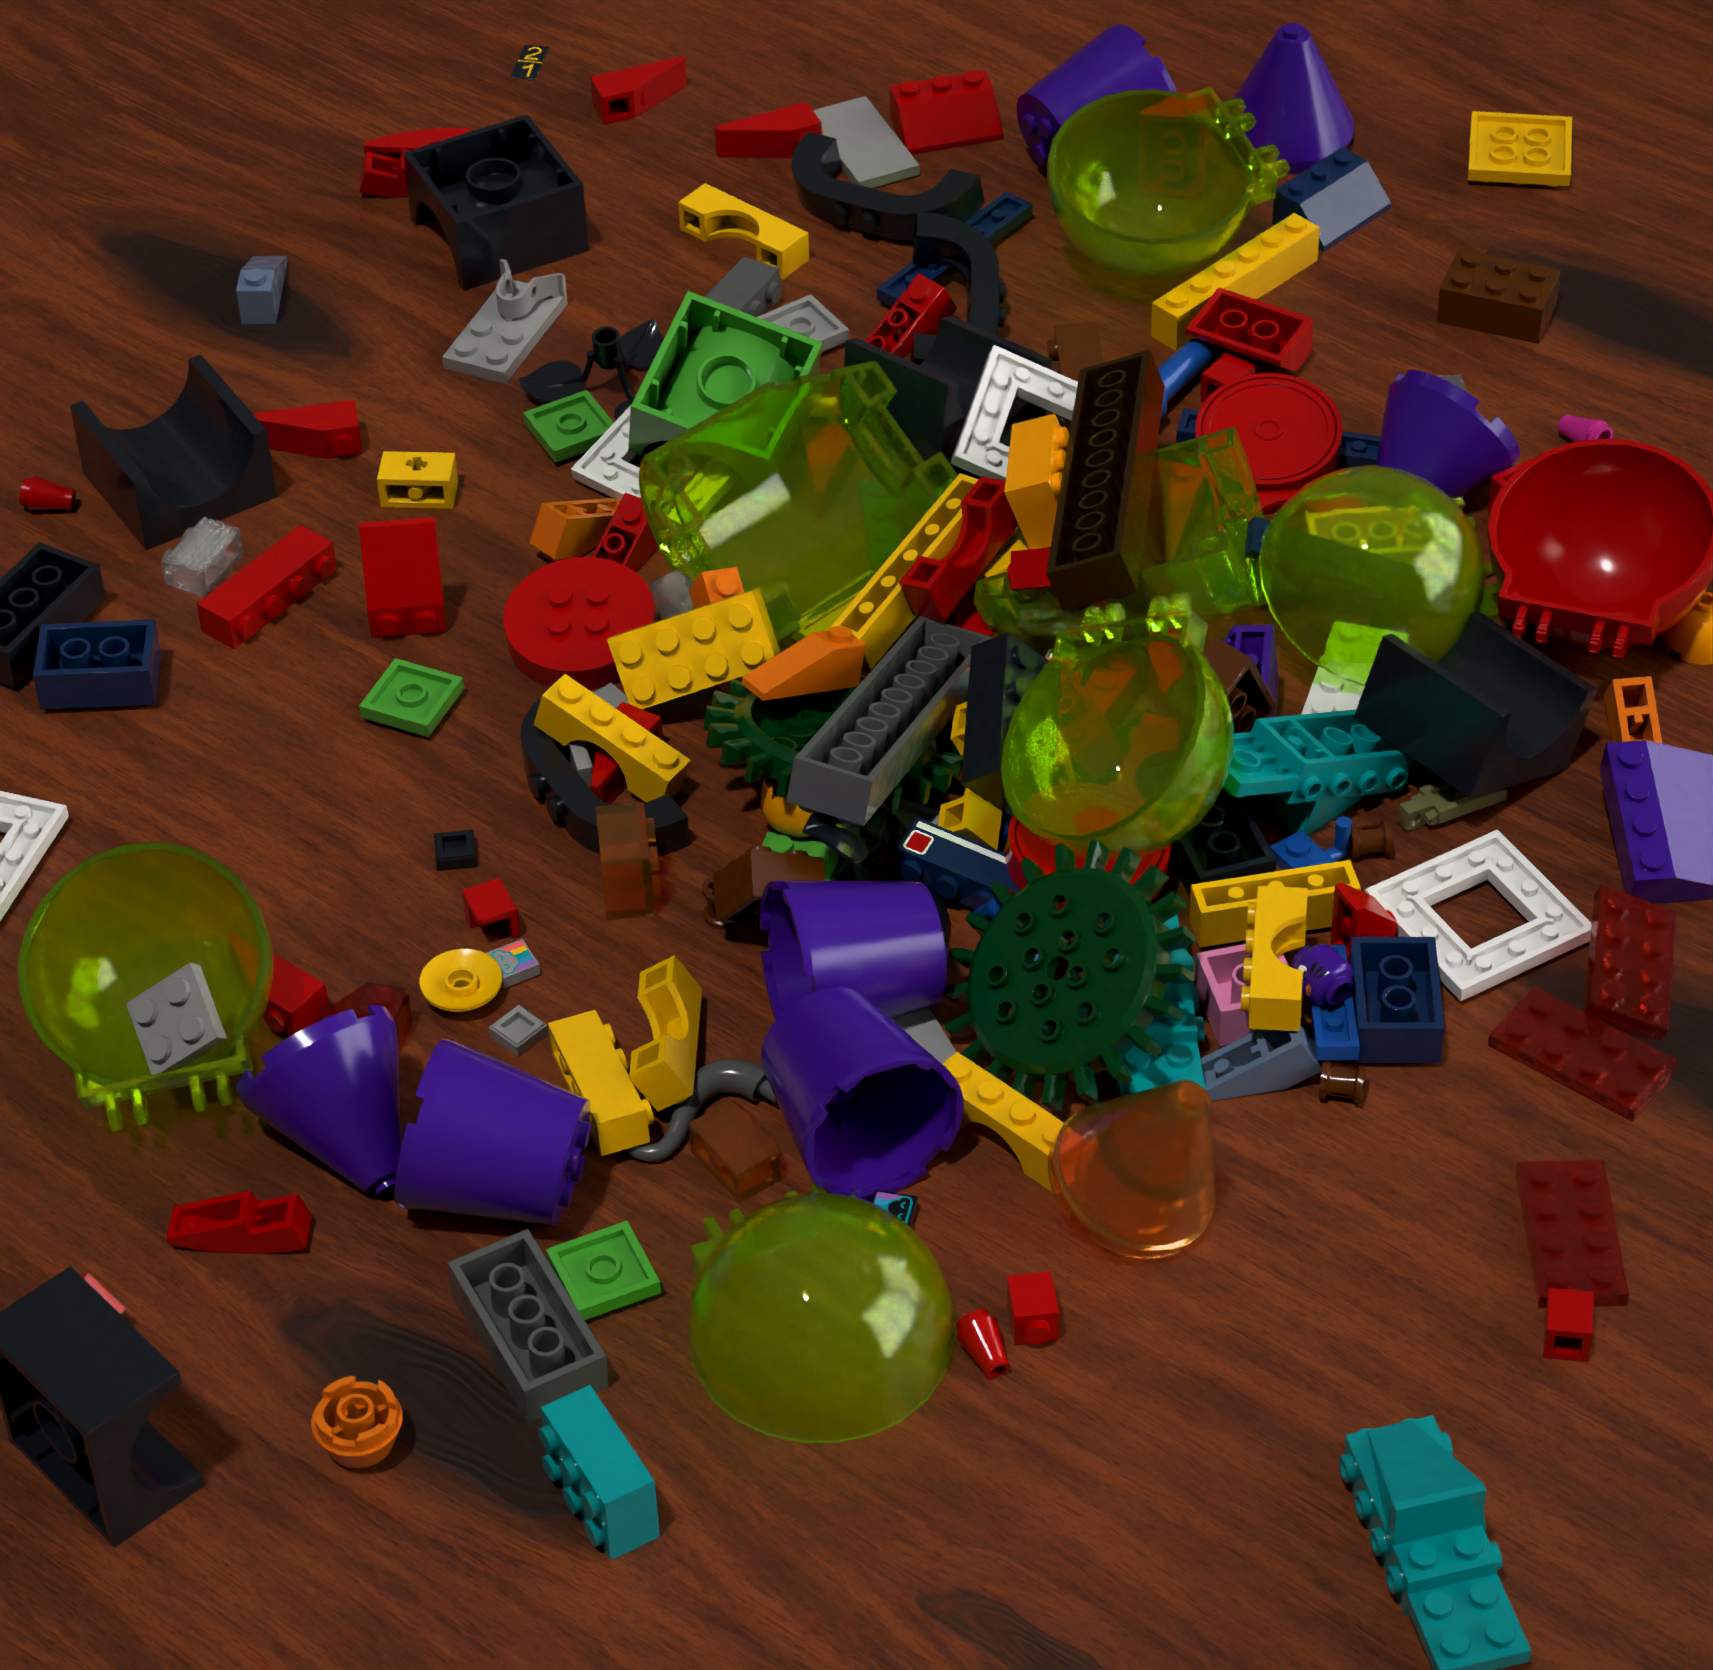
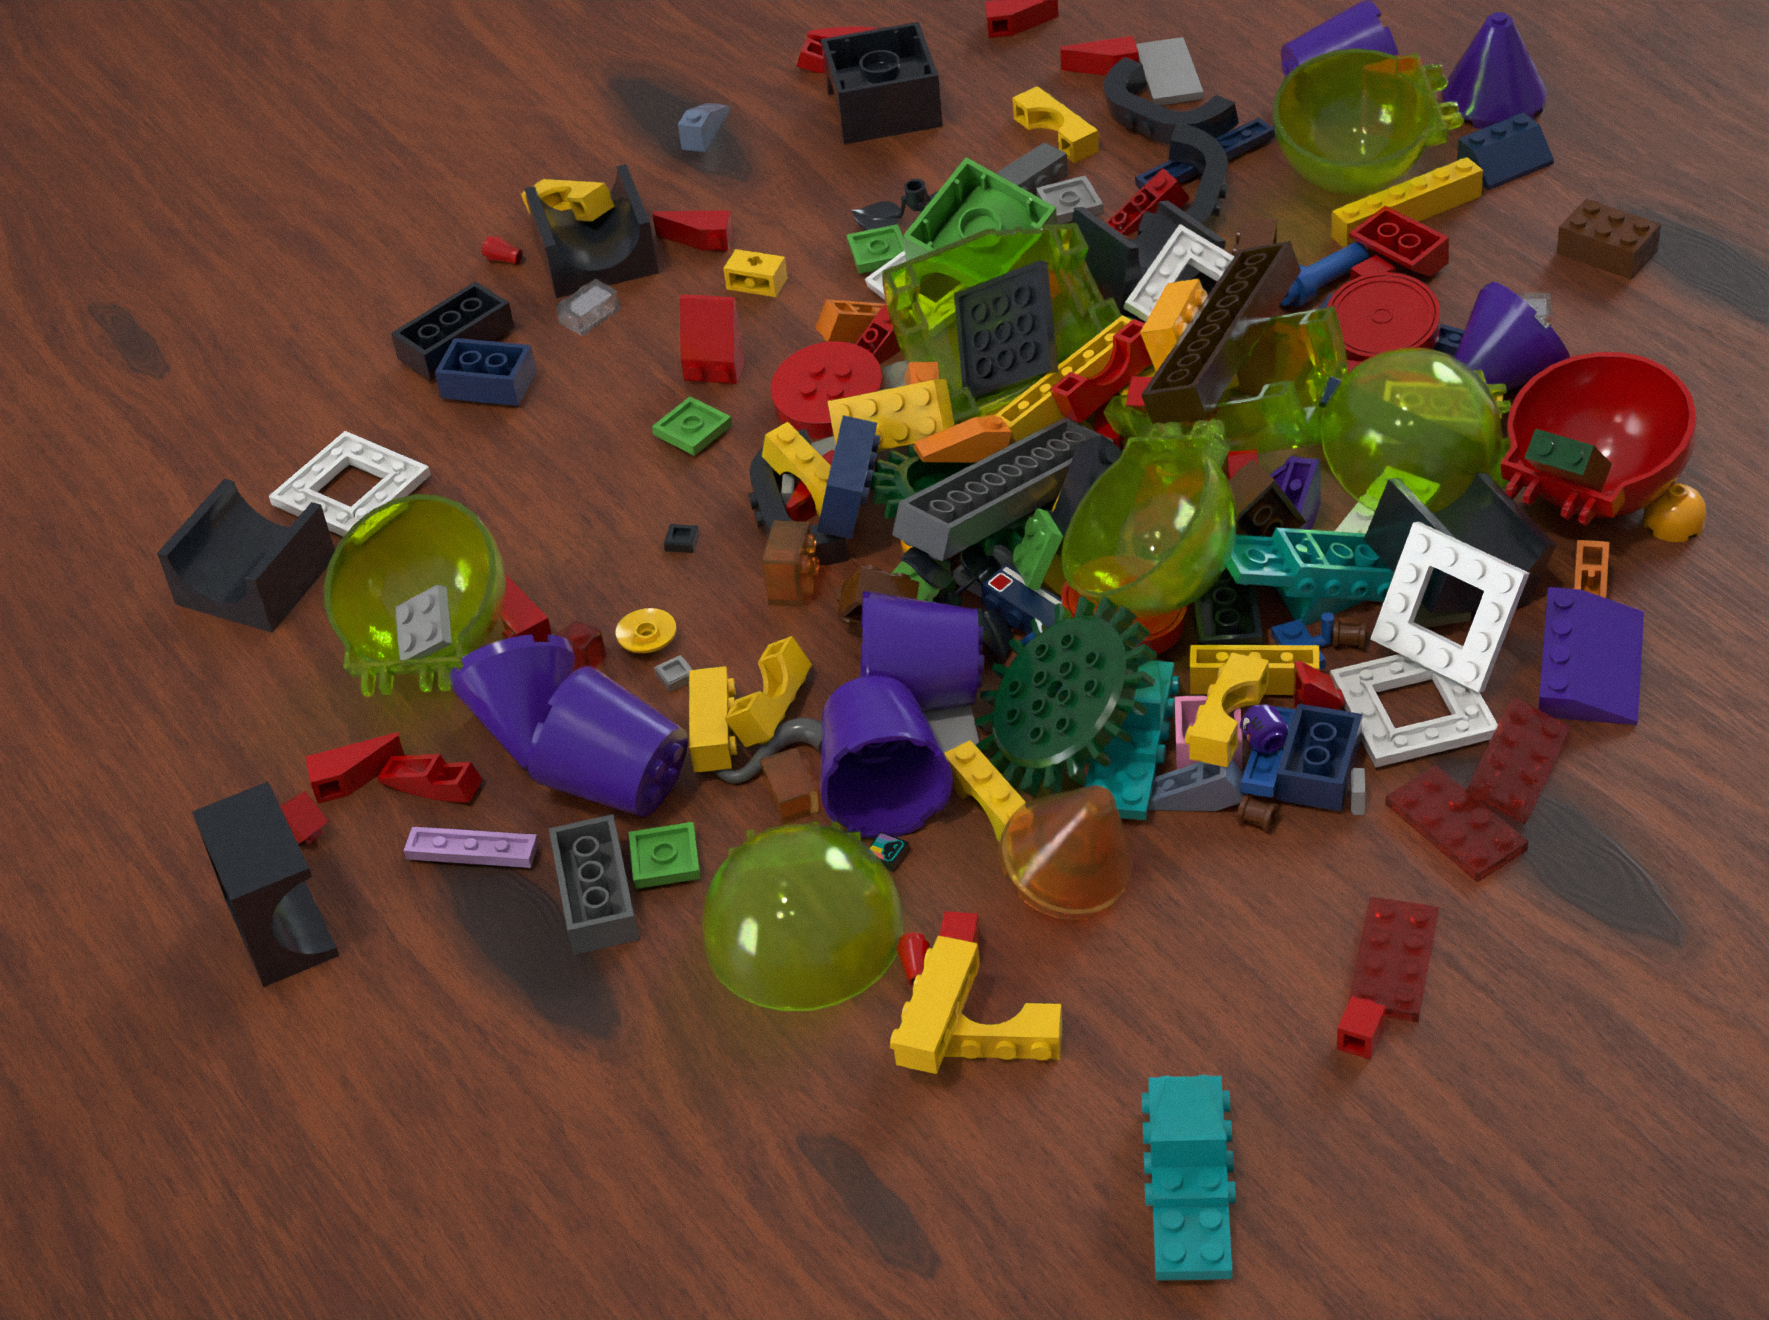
camera: 20 degrees right, 0 degrees up
(120, 1232) = (349, 767): none -> red slope
(154, 408) = (585, 199): none -> yellow arch
(266, 587) = (623, 334): red brick -> none
(334, 1307) = (471, 847): none -> lavender plate
(357, 1421) = (448, 930): orange cone -> none
(489, 904) = (685, 580): red panel -> none
(507, 326) = (862, 172): light grey plate -> none
(516, 963) = (690, 625): light grey tile -> none
(599, 1473) = (598, 999): teal brick -> none
(674, 734) = (849, 476): none -> dark blue wedge
(811, 513) = (1006, 331): none -> black plate
(945, 112) = (1236, 55): red slope -> none
(960, 792) = (1037, 548): none -> bright green plate
(1050, 1395) = (935, 1004): none -> yellow brick
(1066, 1429) = (1028, 1035): none -> yellow arch
(1432, 817) = (1502, 589): none -> white plate
(1456, 1035) = (1357, 791): none -> light grey tile
(1520, 149) = (1670, 130): yellow plate -> none
(1583, 429) = (1639, 347): dark pink cone -> none
(1585, 581) = (1568, 460): none -> dark green brick

